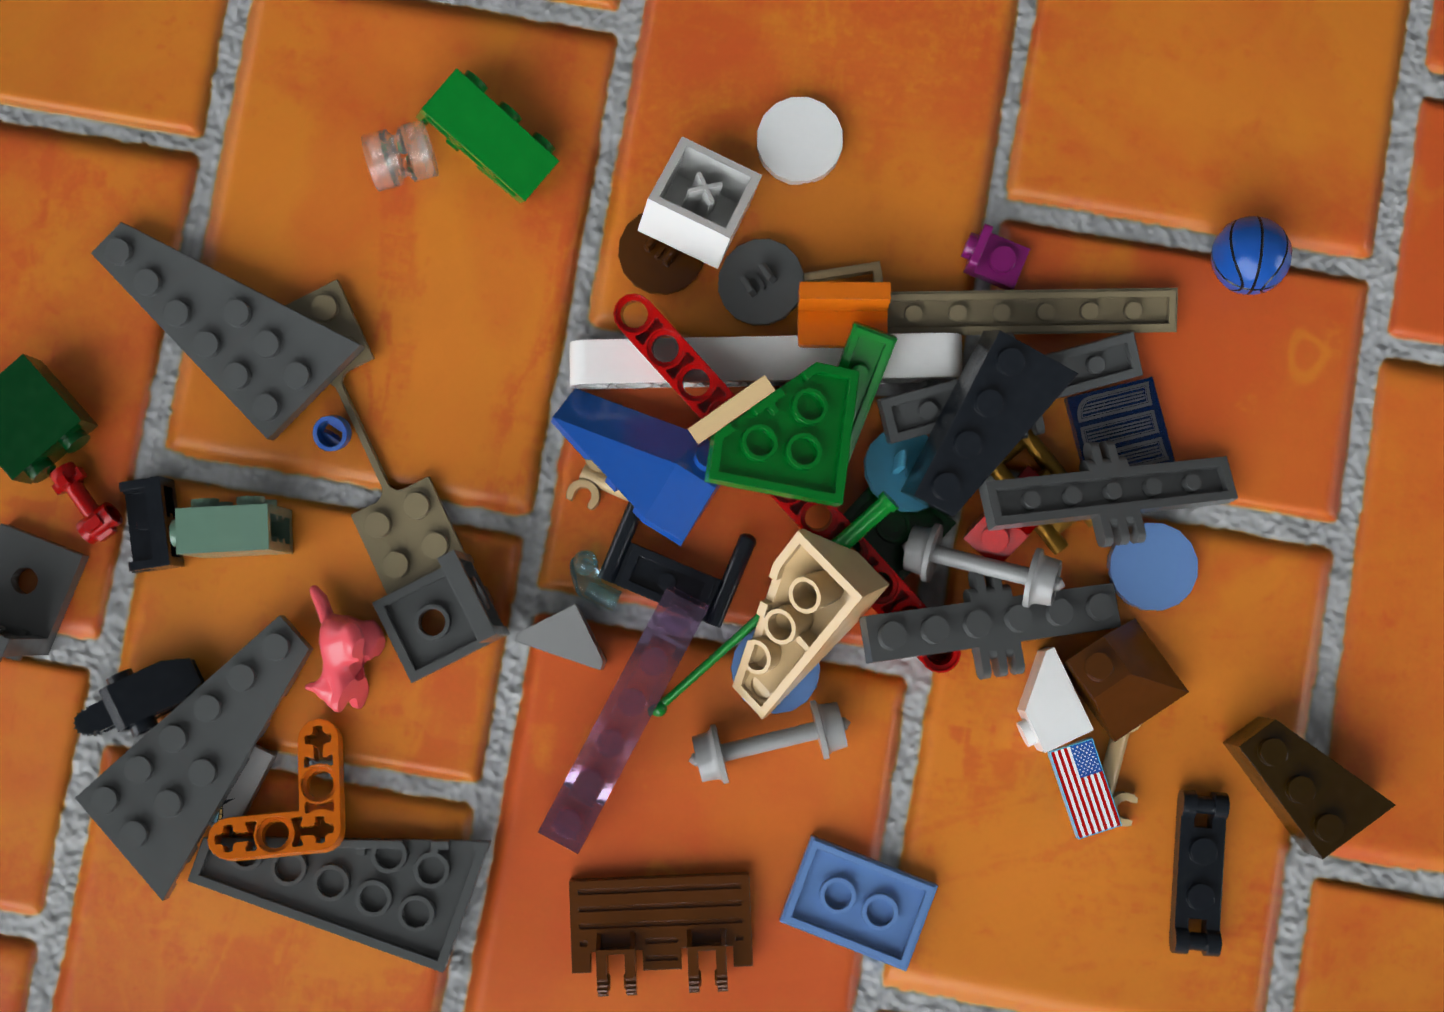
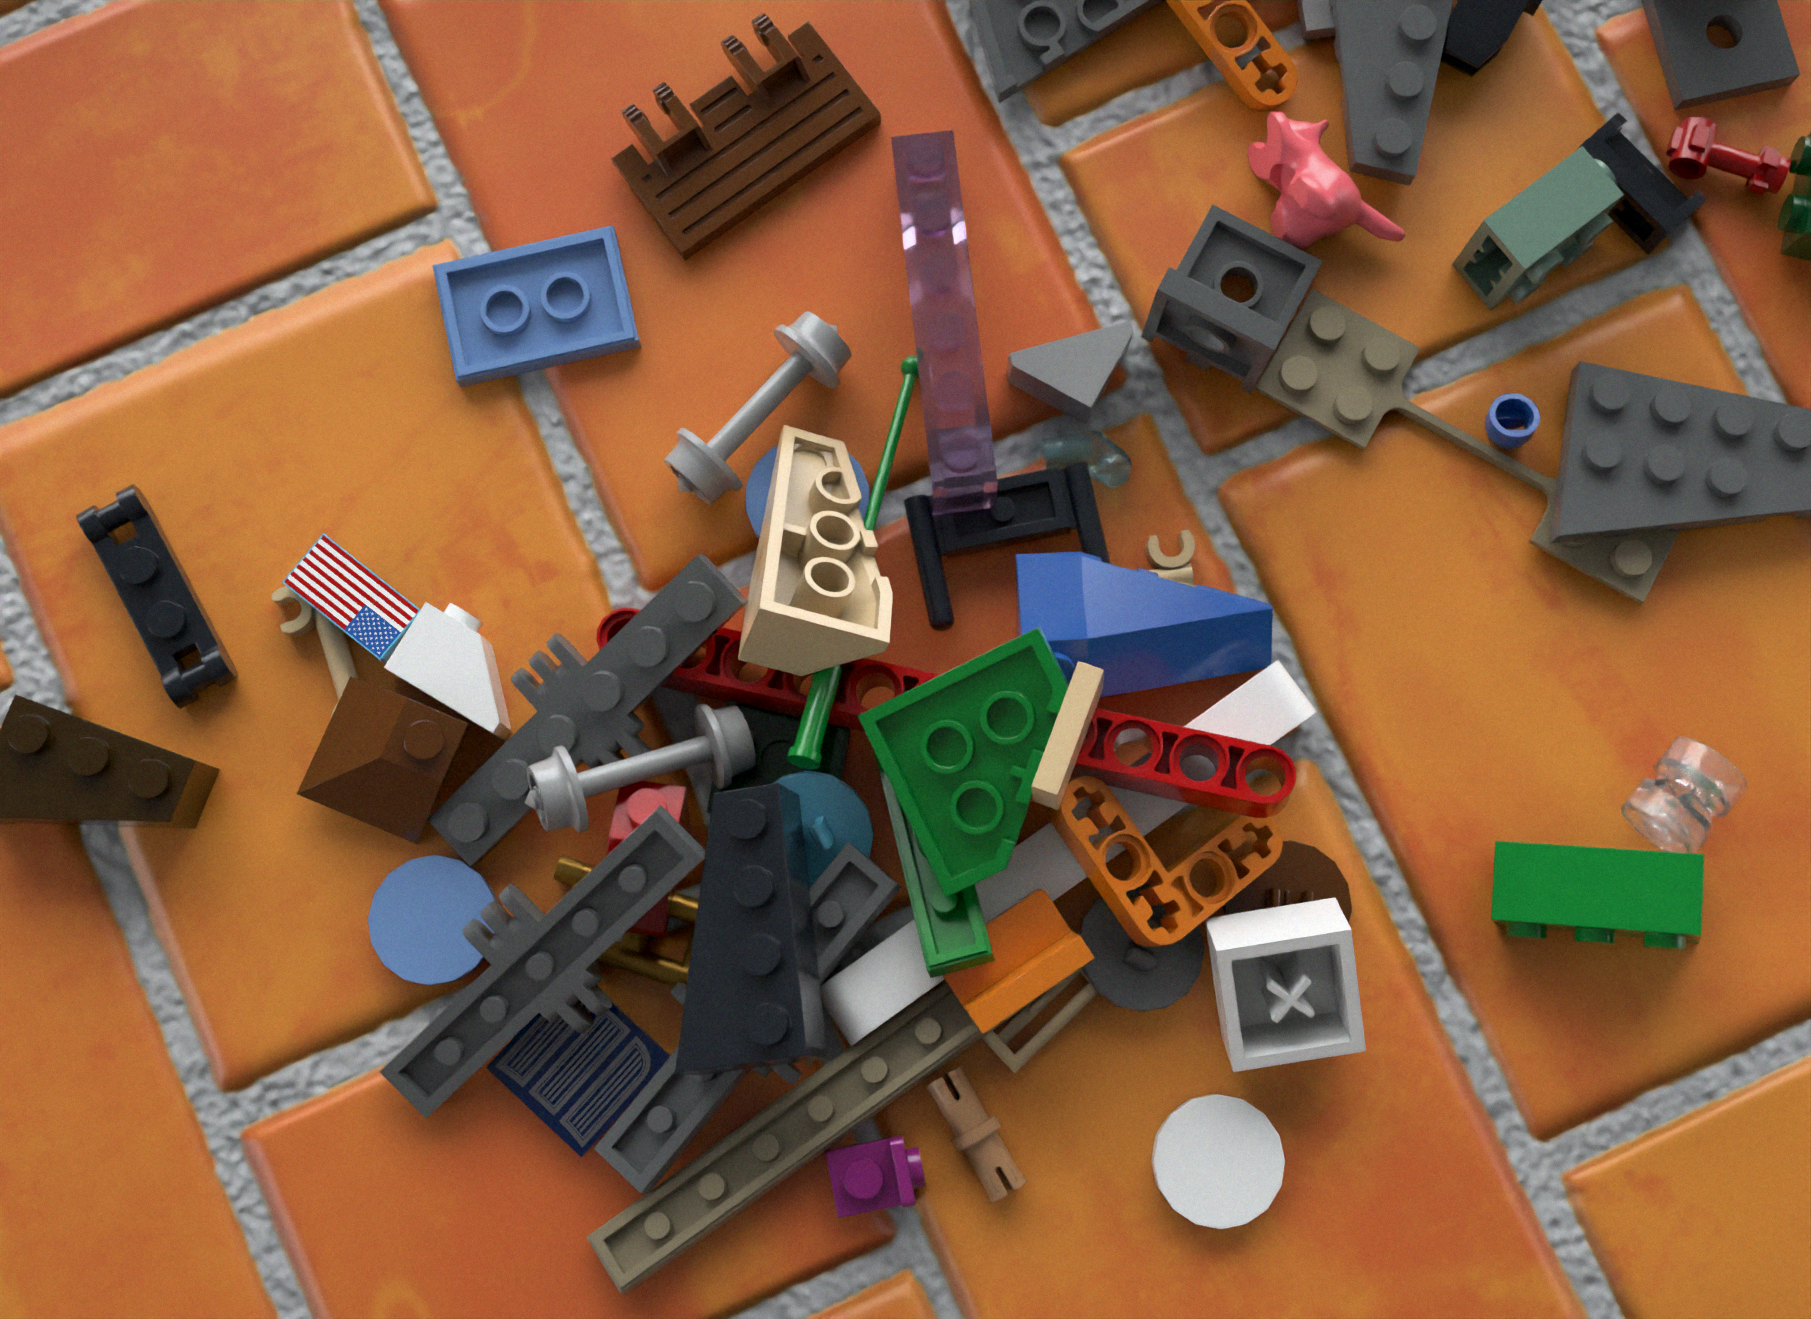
camera: 145 degrees right, 5 degrees down
(723, 299) = (1167, 885): none -> orange beam
(923, 243) = (976, 1134): none -> medium nougat pin

